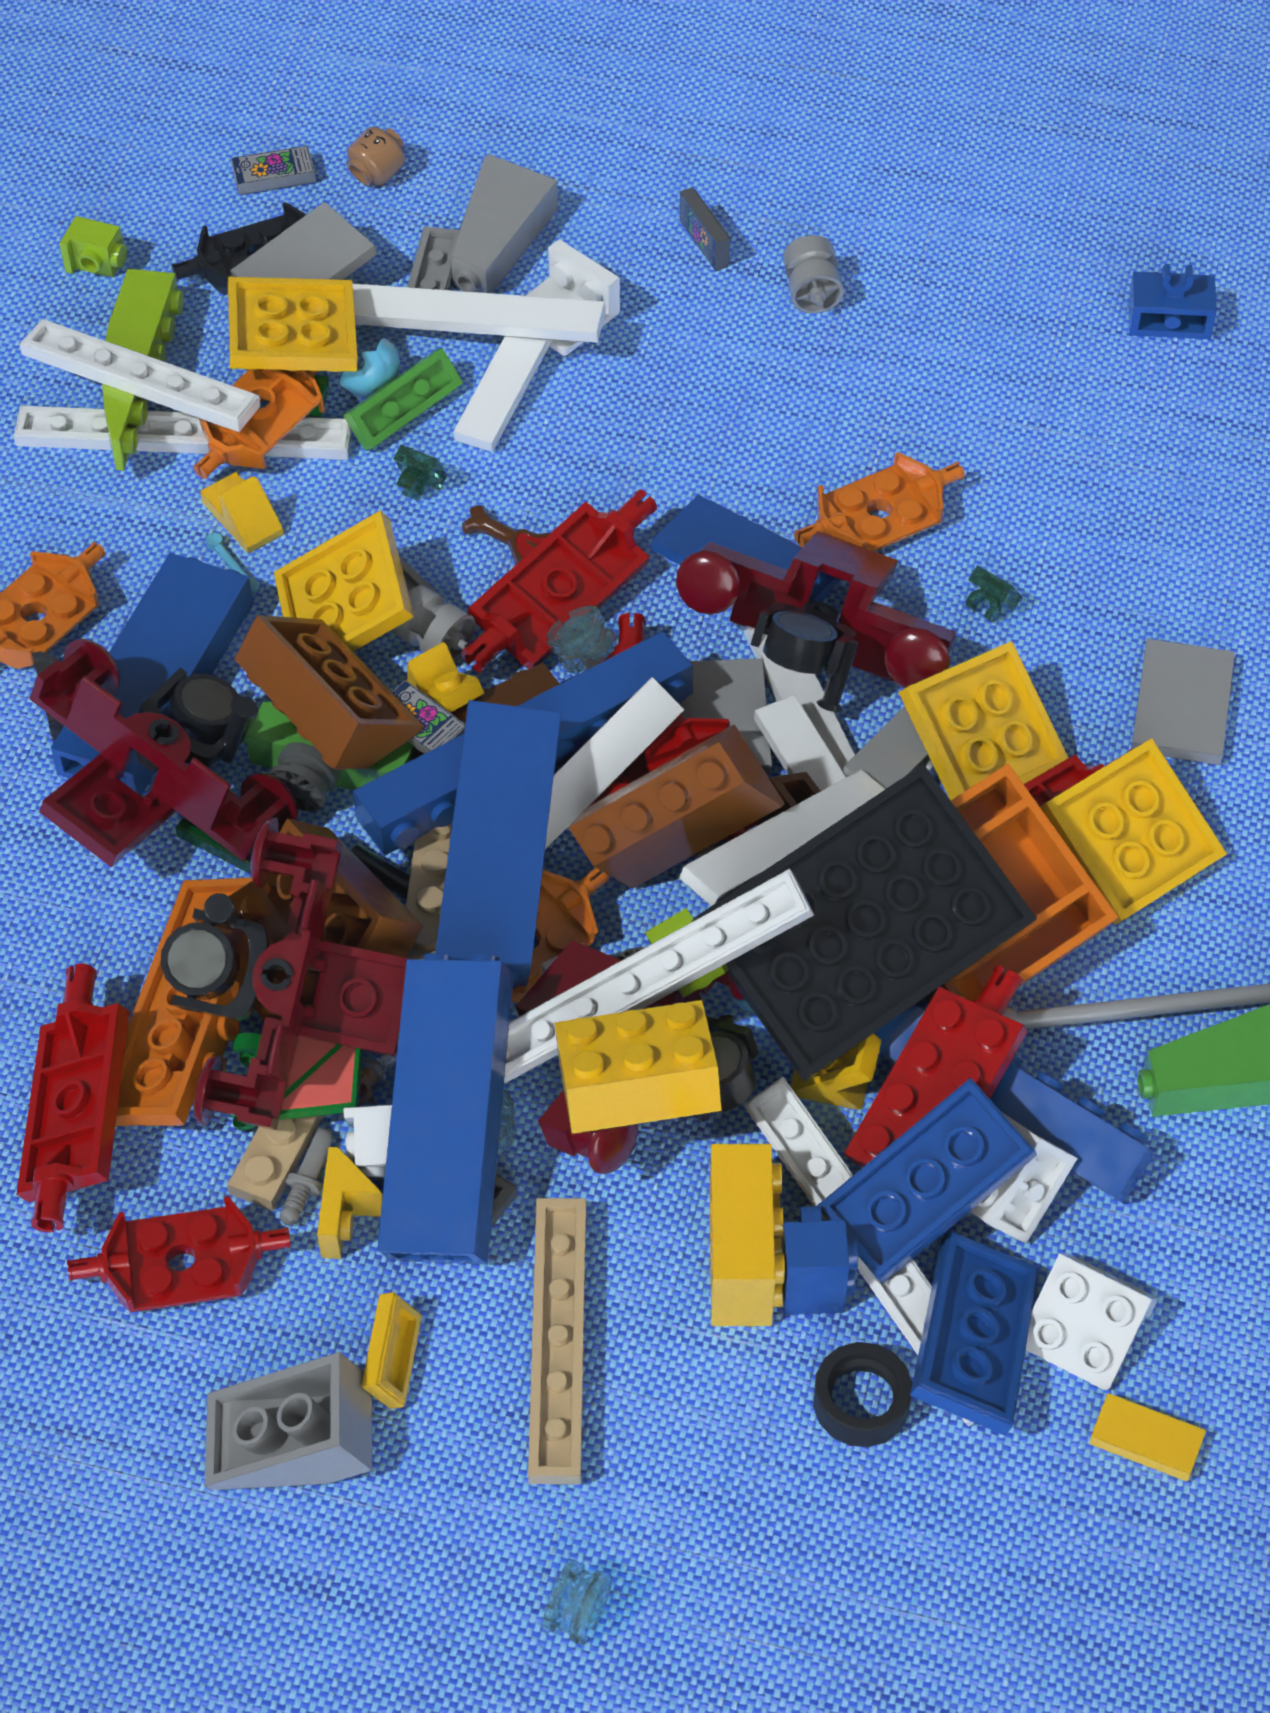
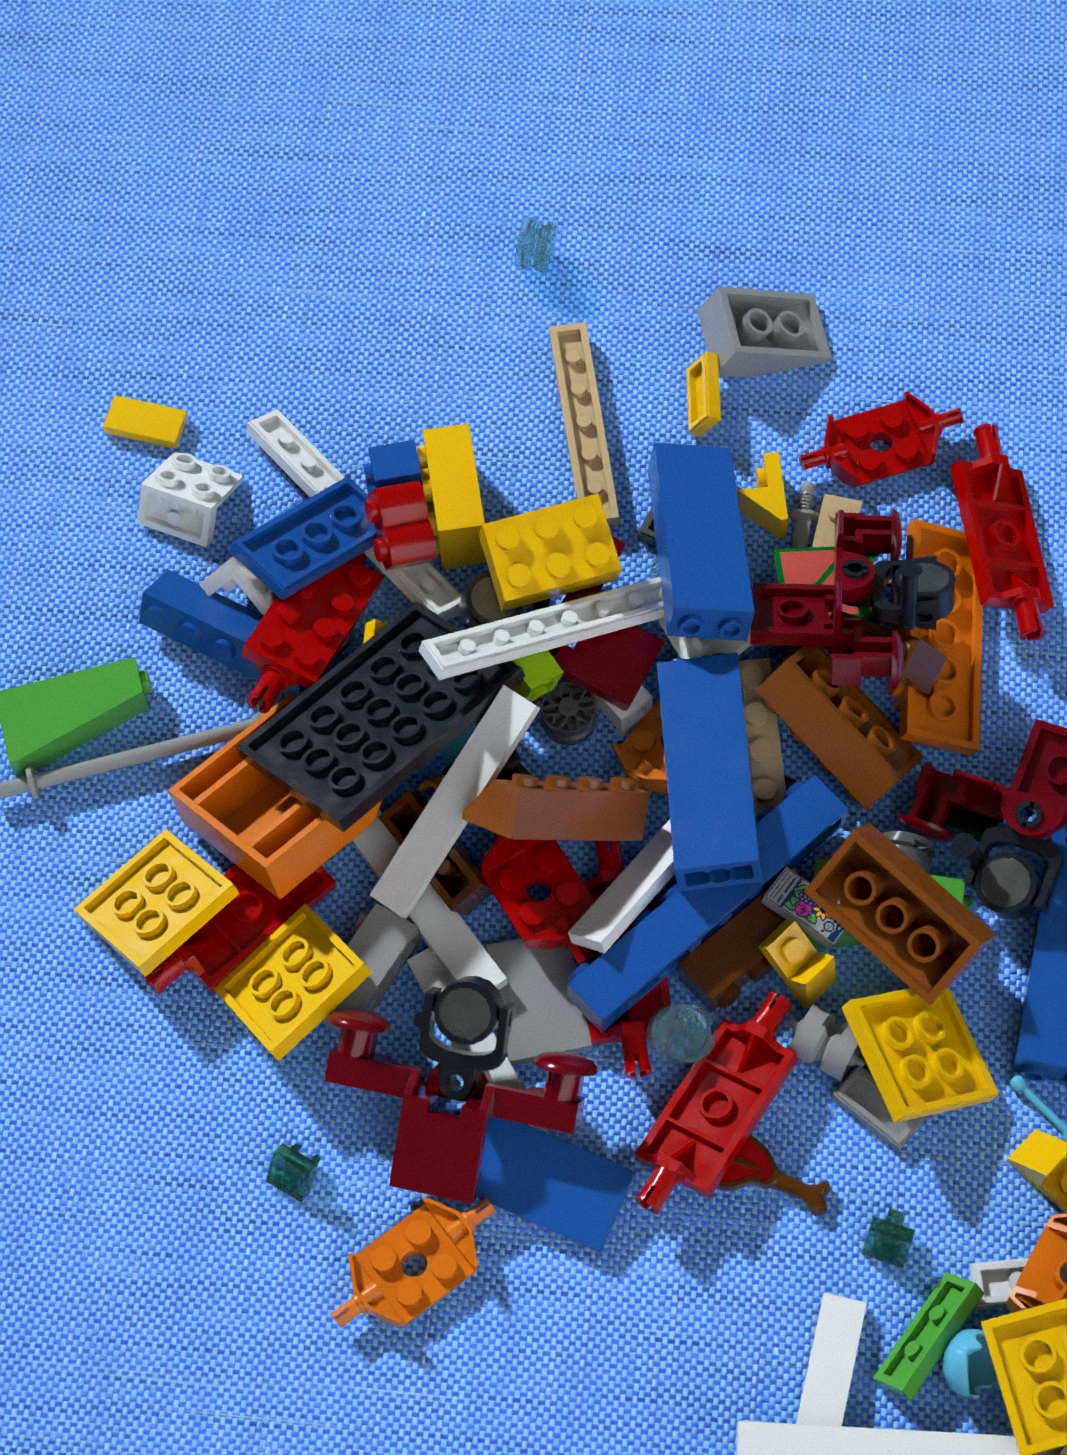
camera: 175 degrees right, 10 degrees up
(369, 1140) = (759, 540): white brick -> none
(816, 1169) = (401, 525): none -> red brick
(866, 1358) = (353, 391): black tyre -> none
(975, 1333) = (271, 450): blue tile -> none
(1184, 700) = (109, 1079): light grey tile -> none

